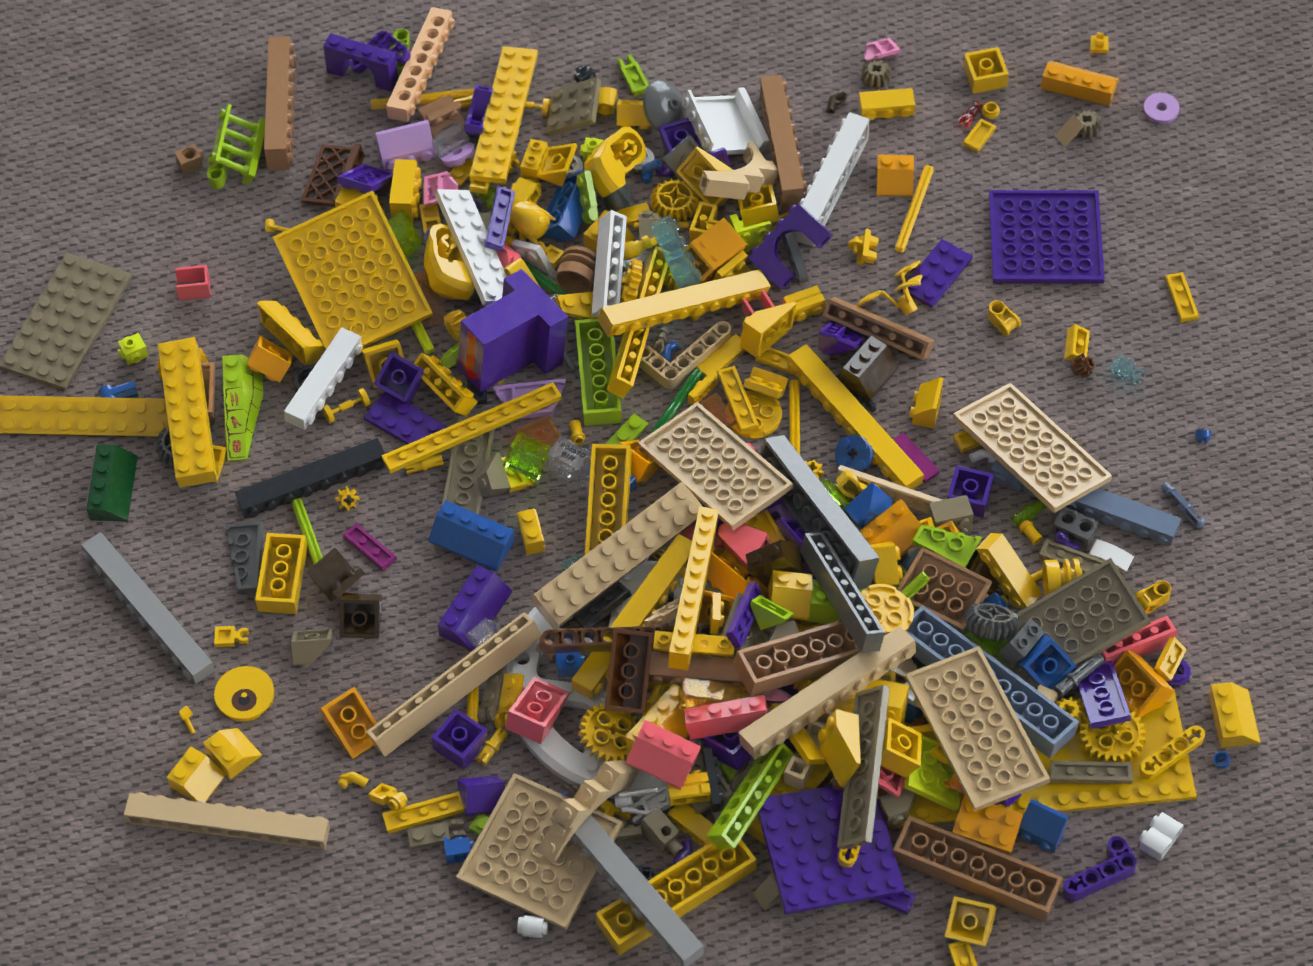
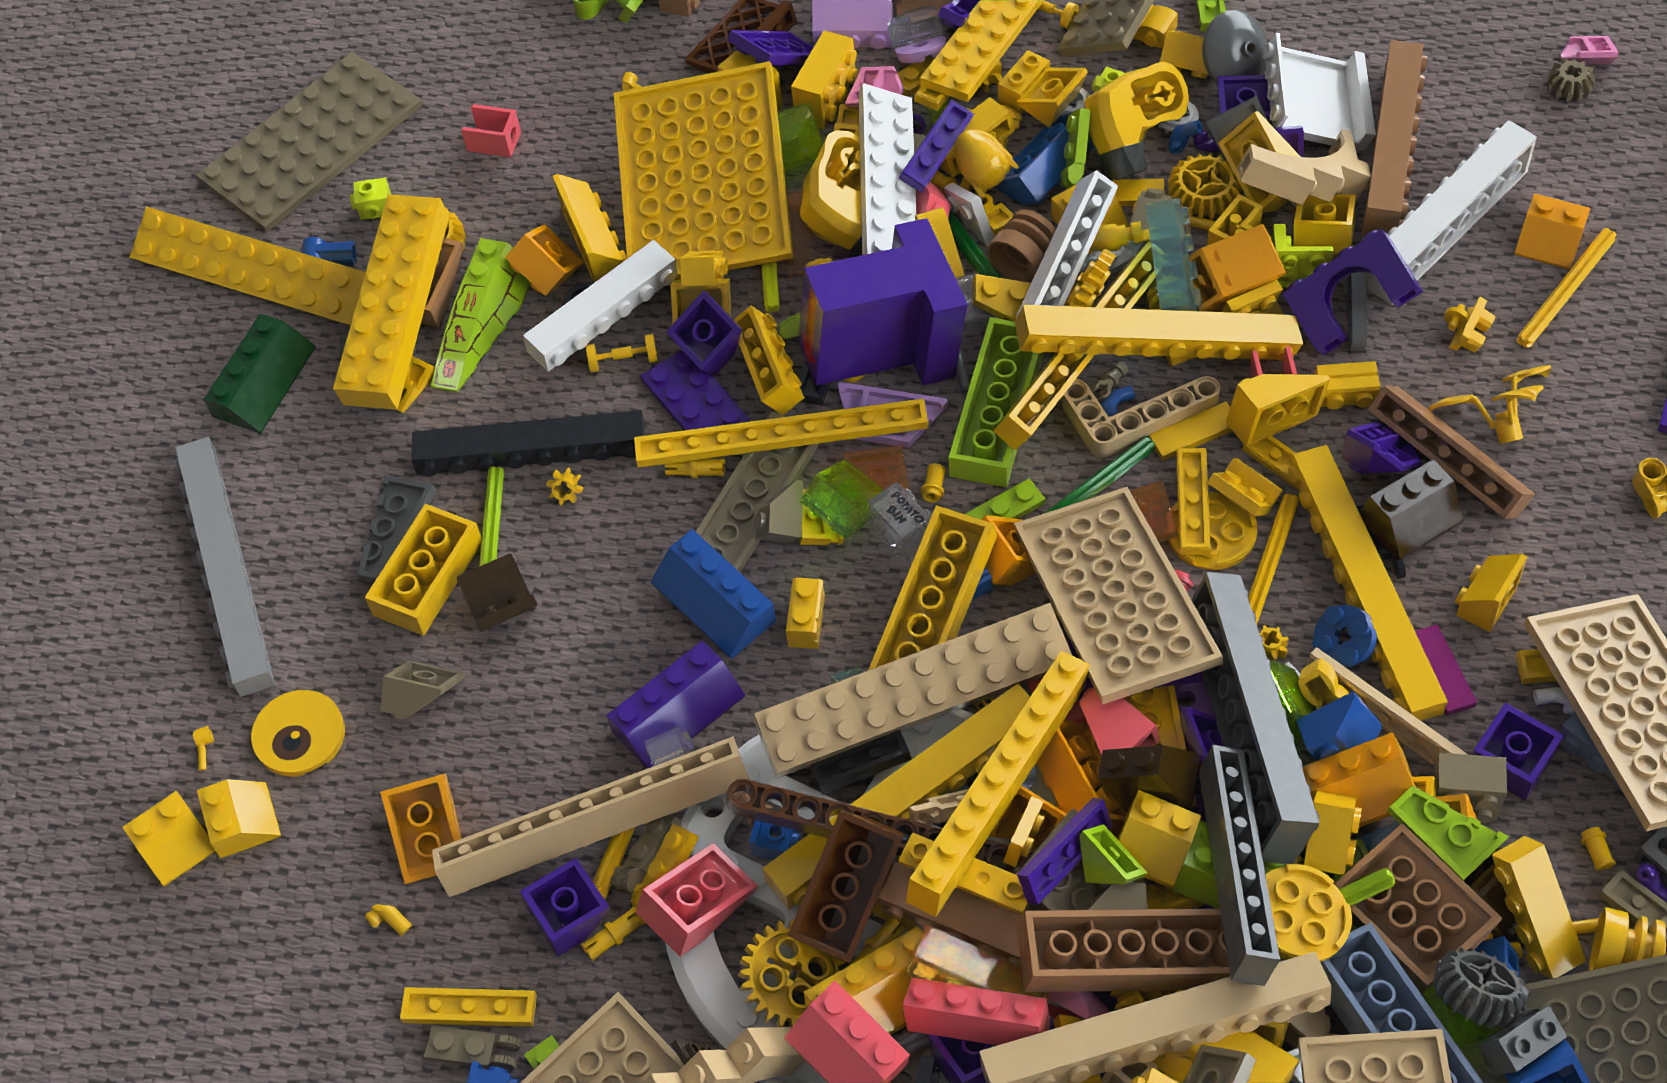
camera: 25 degrees right, 0 degrees up
(227, 636) = (314, 638): yellow plate -> none
(227, 820) = (183, 924): tan brick -> none
(360, 615) = (508, 665): dark brown slope -> none
(369, 547) = (568, 567): magenta tile -> none
(381, 337) = (702, 268): none -> yellow brick
(387, 794) = (424, 961): yellow plate -> none
(480, 794) = (561, 1005): dark purple slope -> none
(703, 387) = (1146, 469): yellow plate -> none
(835, 100) = (1495, 104): dark brown arm -> none
(887, 103) = (1574, 126): yellow brick -> none
(938, 272) = (1574, 393): dark purple plate -> none
(1028, 512) = (1604, 814): clear neon green pin -> none

